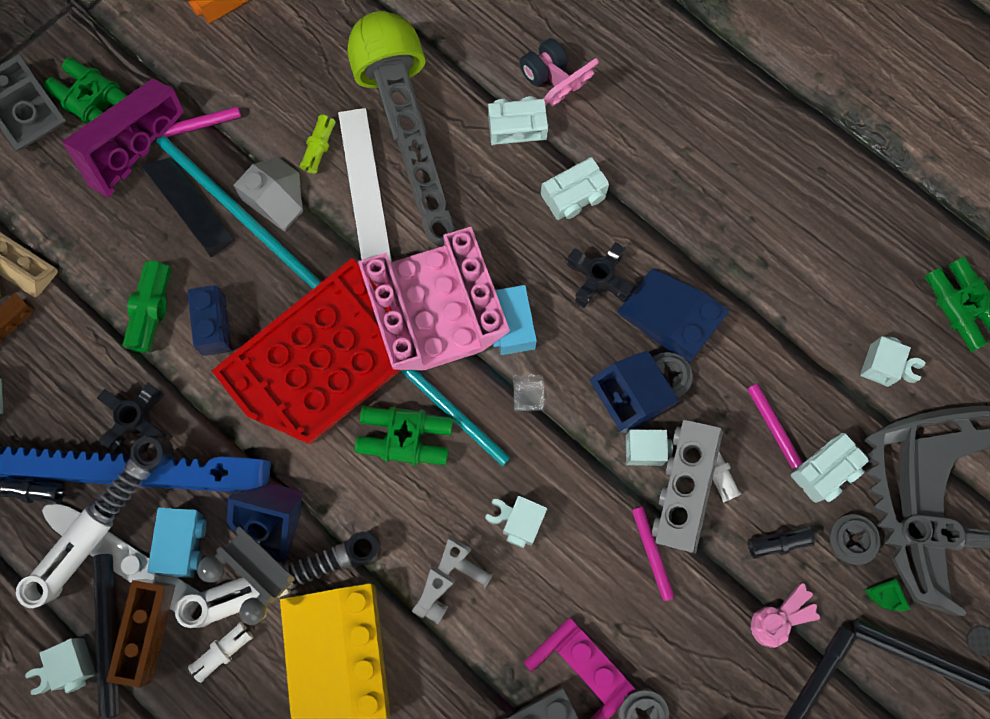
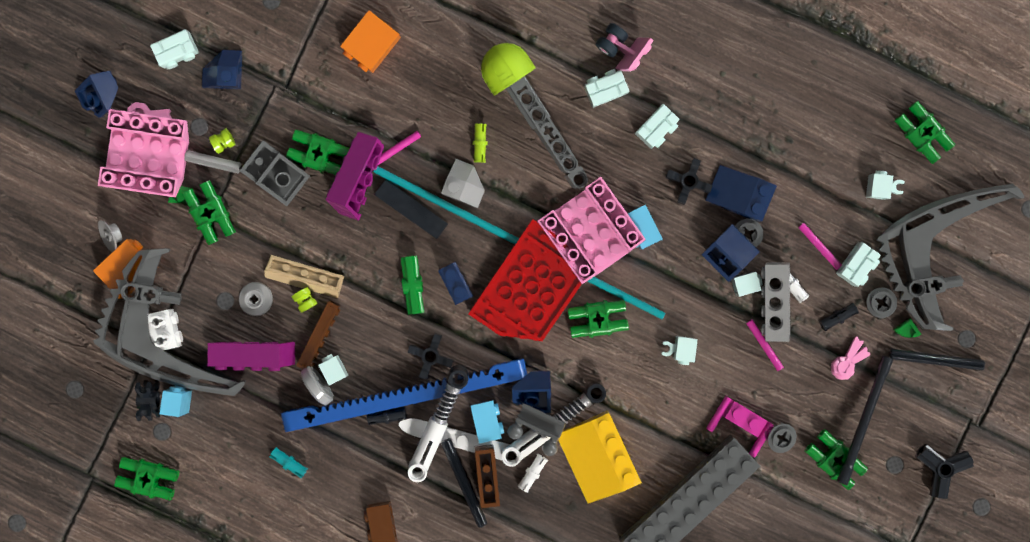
camera: 10 degrees left, 15 degrees up
(63, 667) = (448, 505): light aqua brick -> none
(364, 183) = (520, 163): white tile -> none
(440, 581) = (644, 410): light grey piece -> none
(528, 392) = (664, 268): clear slope -> none

